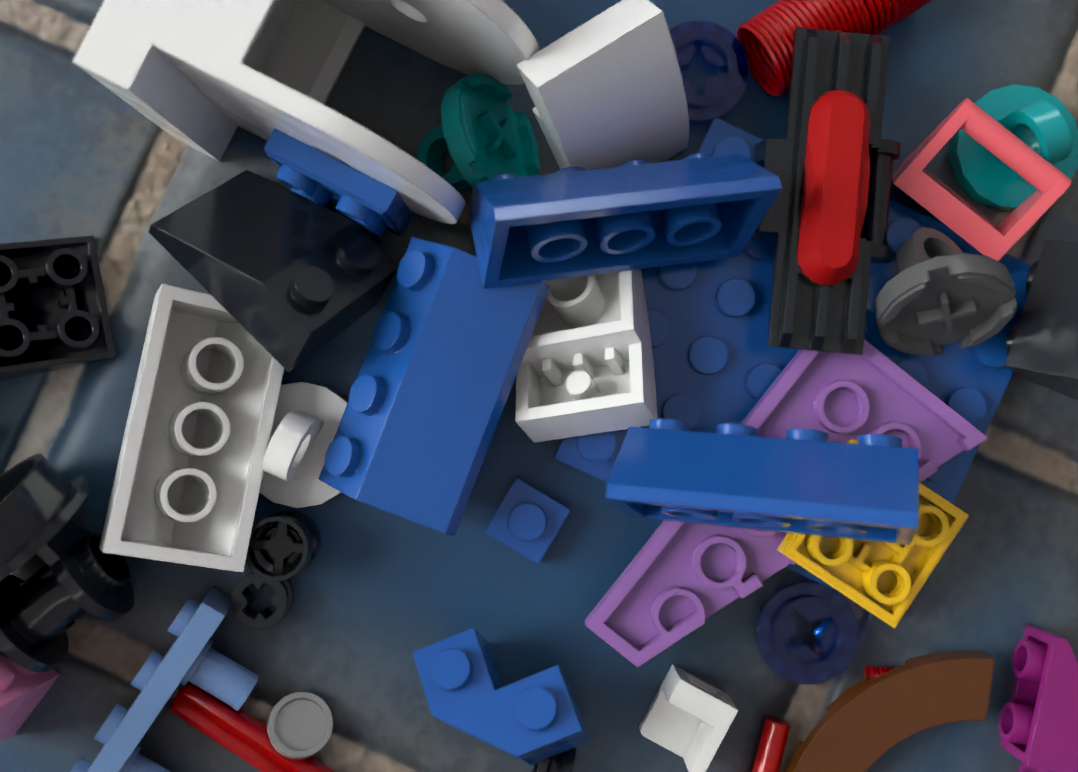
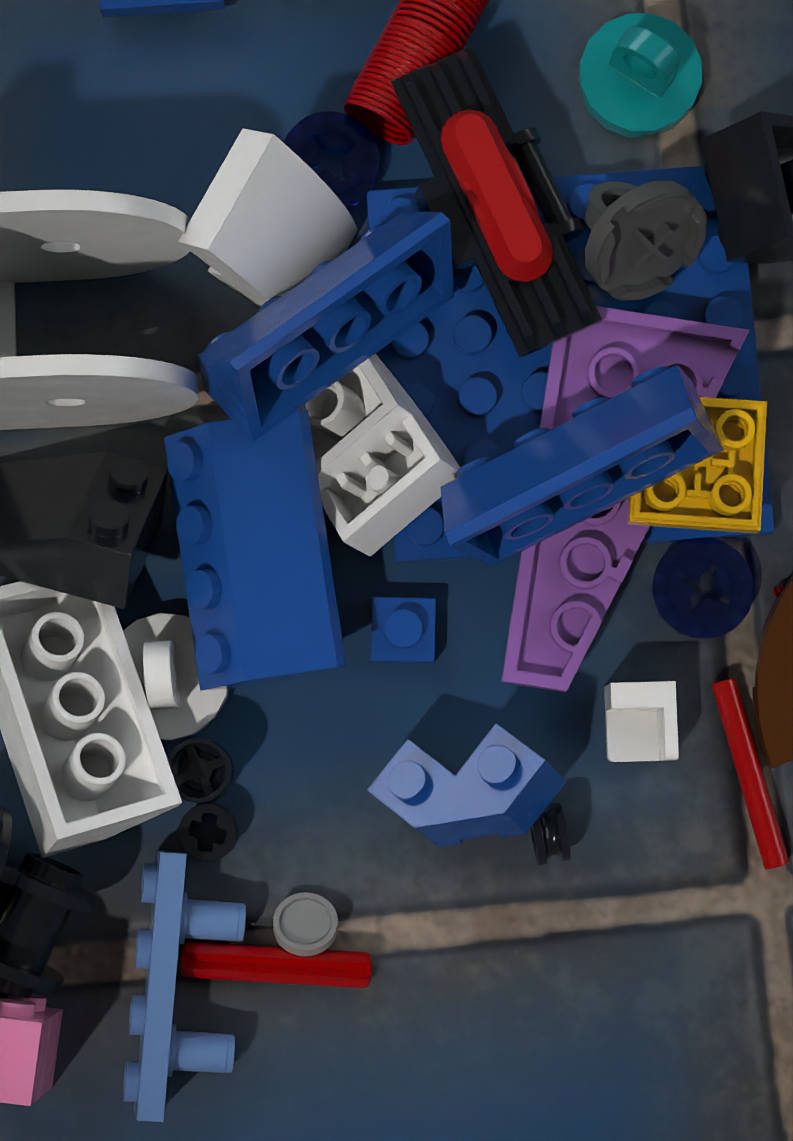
camera: 30 degrees left, 5 degrees down
(324, 179) = (72, 426): blue tile -> none
(480, 134) = (174, 315): teal tile -> none
(955, 211) = (615, 155): coral tile -> none

